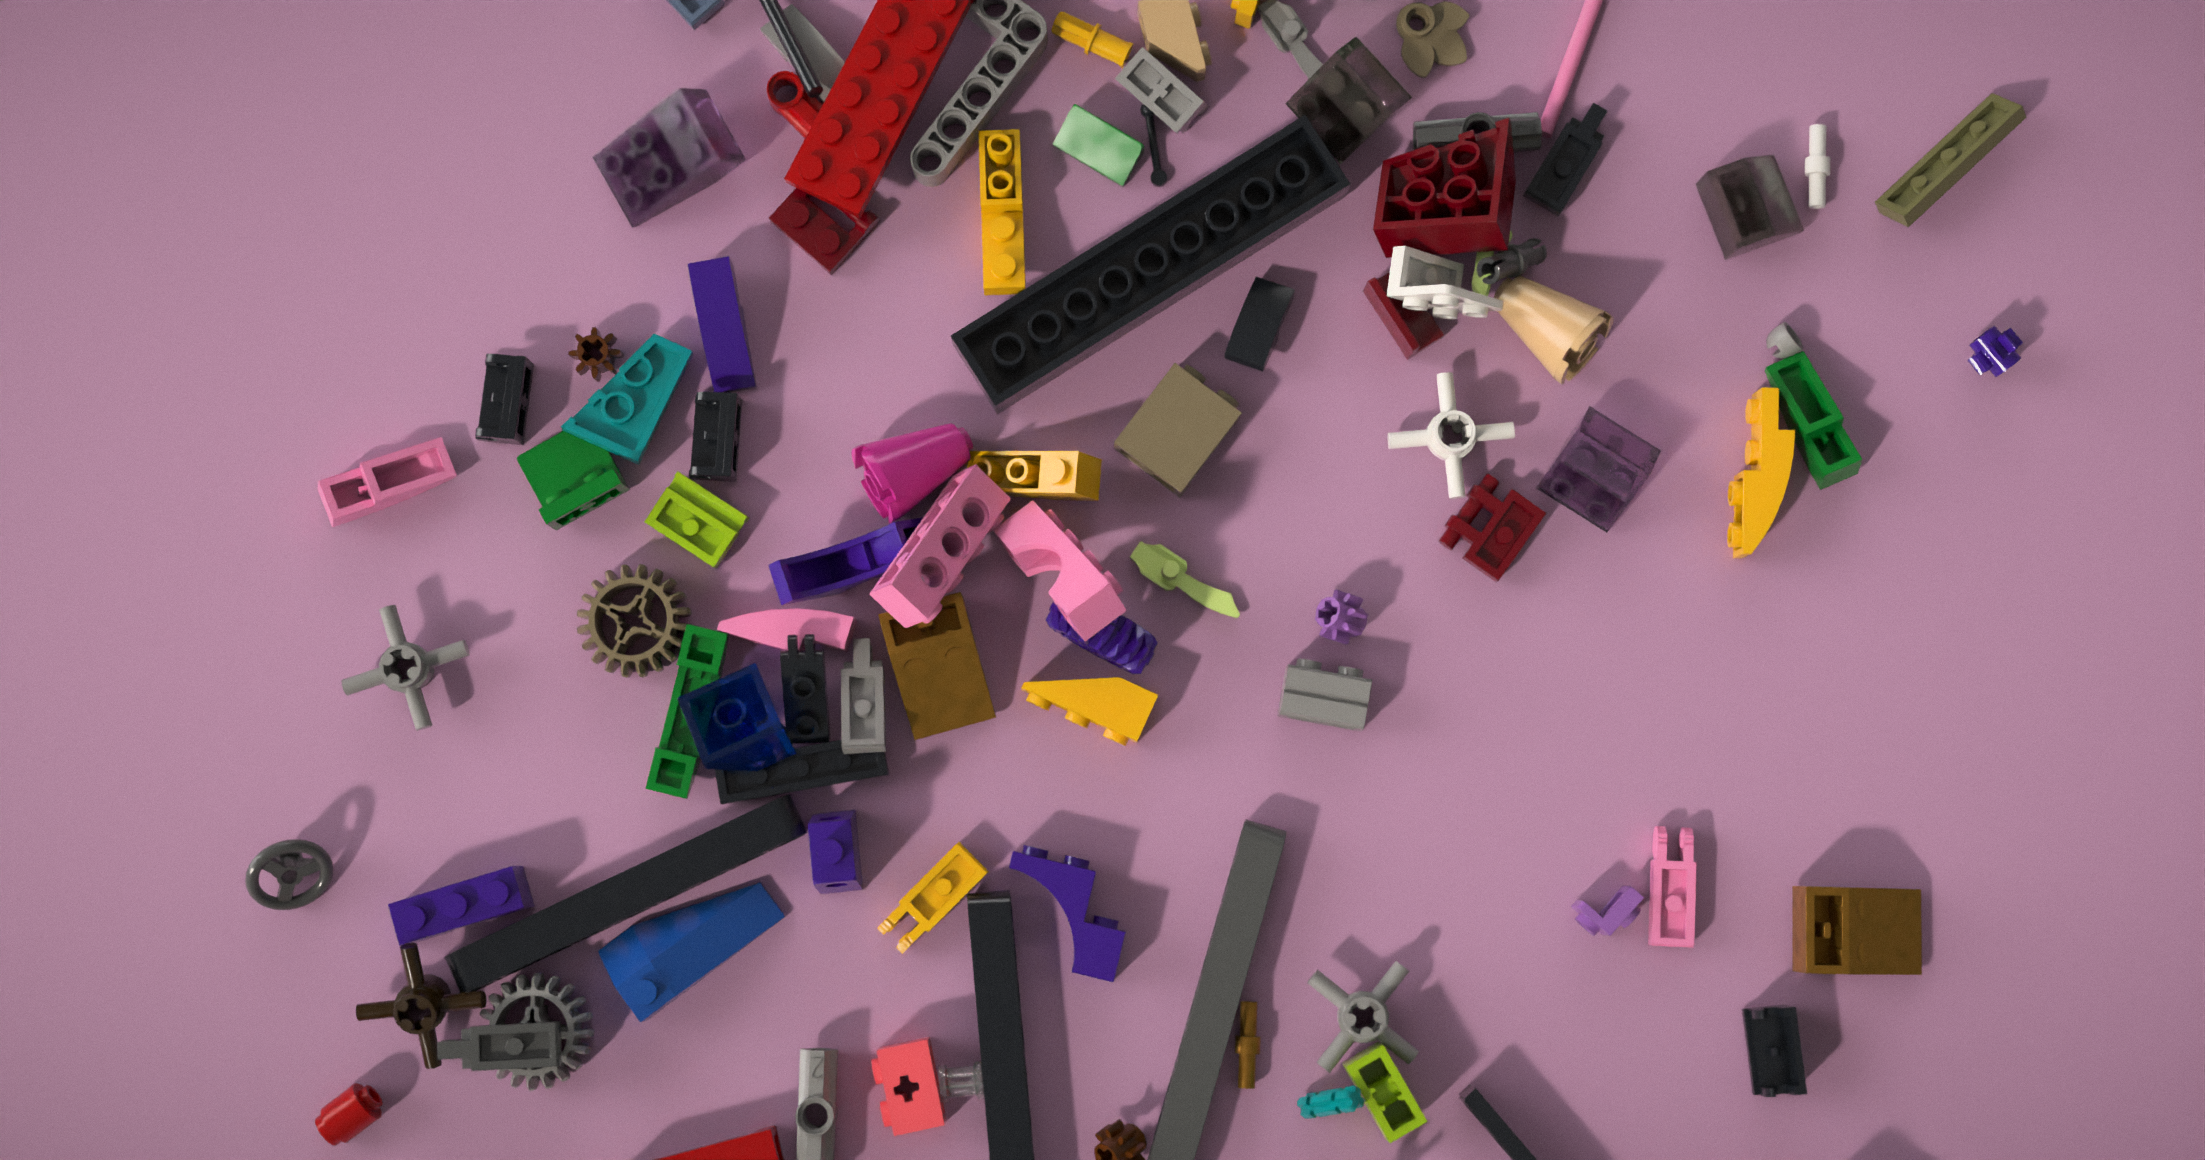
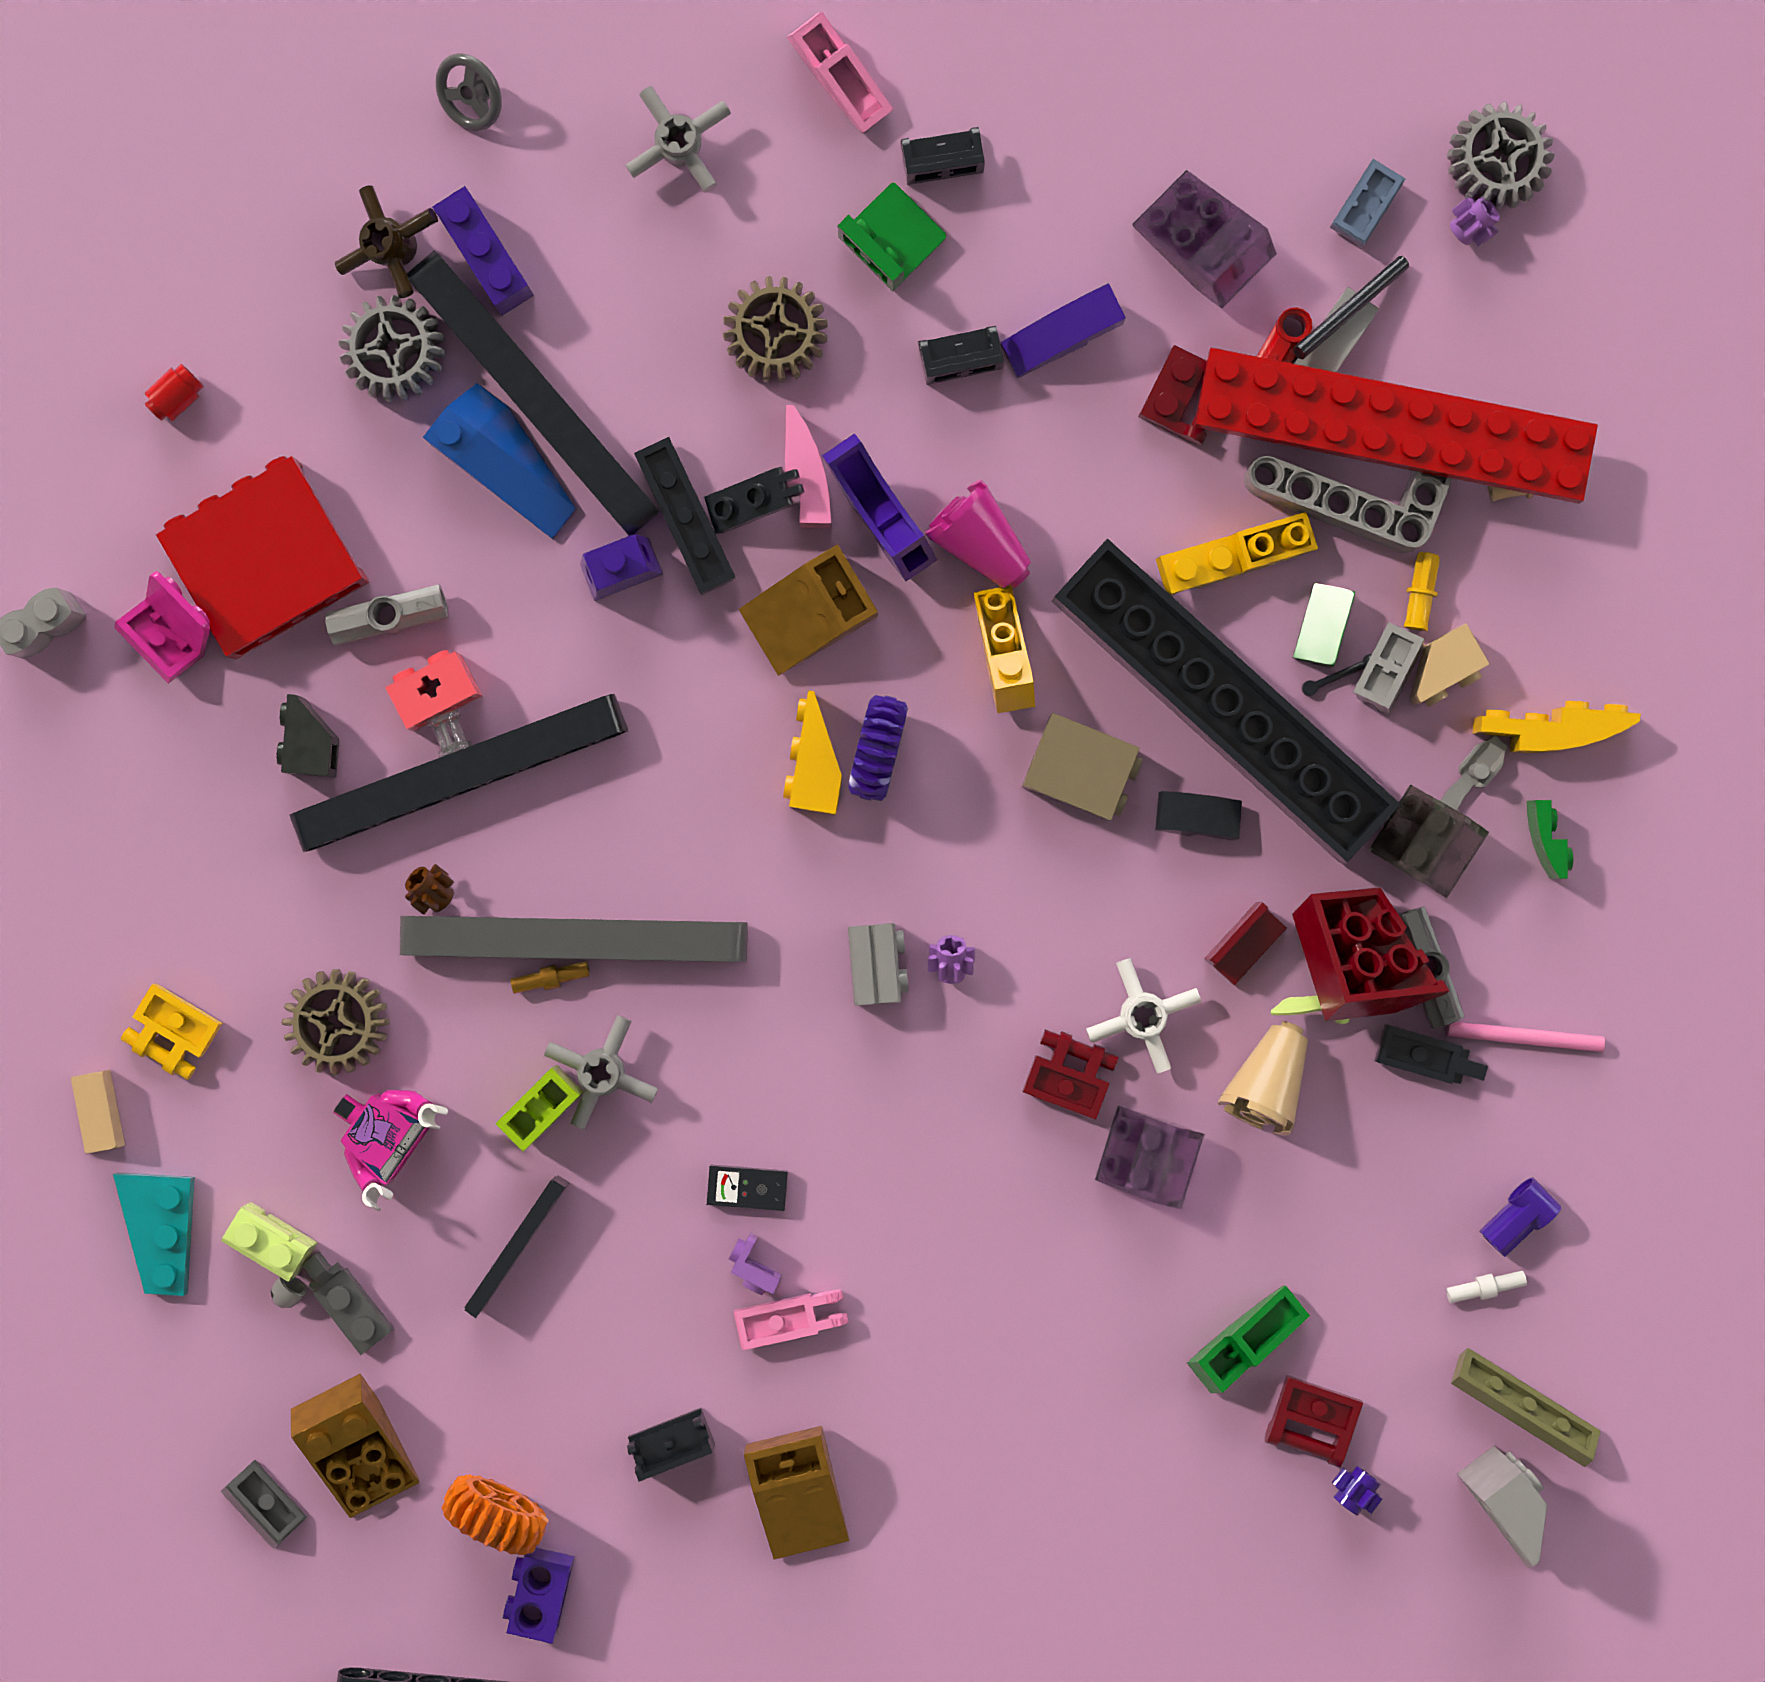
camera: 80 degrees right, 5 degrees up
(349, 1114) = (277, 207): red brick -> none
(506, 1046) = (369, 325): dark grey hinge -> none
(604, 346) = (1000, 217): reddish brown gear -> none
(633, 402) = (972, 272): teal wing -> none
(677, 757) = (707, 402): green slope -> none
(696, 520) = (881, 359): lime plate -> none
(736, 722) = (707, 446): clear blue slope -> none
(863, 701) = (758, 553): light grey hinge -> none
(901, 585) = (865, 556): bright pink brick -> none
(936, 894) = (607, 666): yellow hinge -> none
(1071, 882) = (647, 783): dark purple arch -> none
(1081, 592) = (903, 716): bright pink arch -> none
(1170, 570) = (951, 795): yellowish green piece -> none
(1330, 1102) = (518, 1063): teal axle -> none
(1434, 284) = (1278, 963): white bracket -> none
(1436, 41) = (1507, 907): dark tan plate -> none
(1511, 262) = (1317, 1030): dark grey pin -> none
(1523, 896) = (747, 1187): none -> tile
(1748, 205) = (1432, 1233): clear smoke slope -> none
(1750, 104) = (1528, 1209): none -> dark purple piece
(1760, 491) = (1168, 1308): yellow slope -> none
(1786, 341) = (1315, 1297): light grey hinge -> none
(1900, 370) = (1319, 1409): none -> dark red plate
(2046, 197) = (1510, 1499): none -> light grey wedge

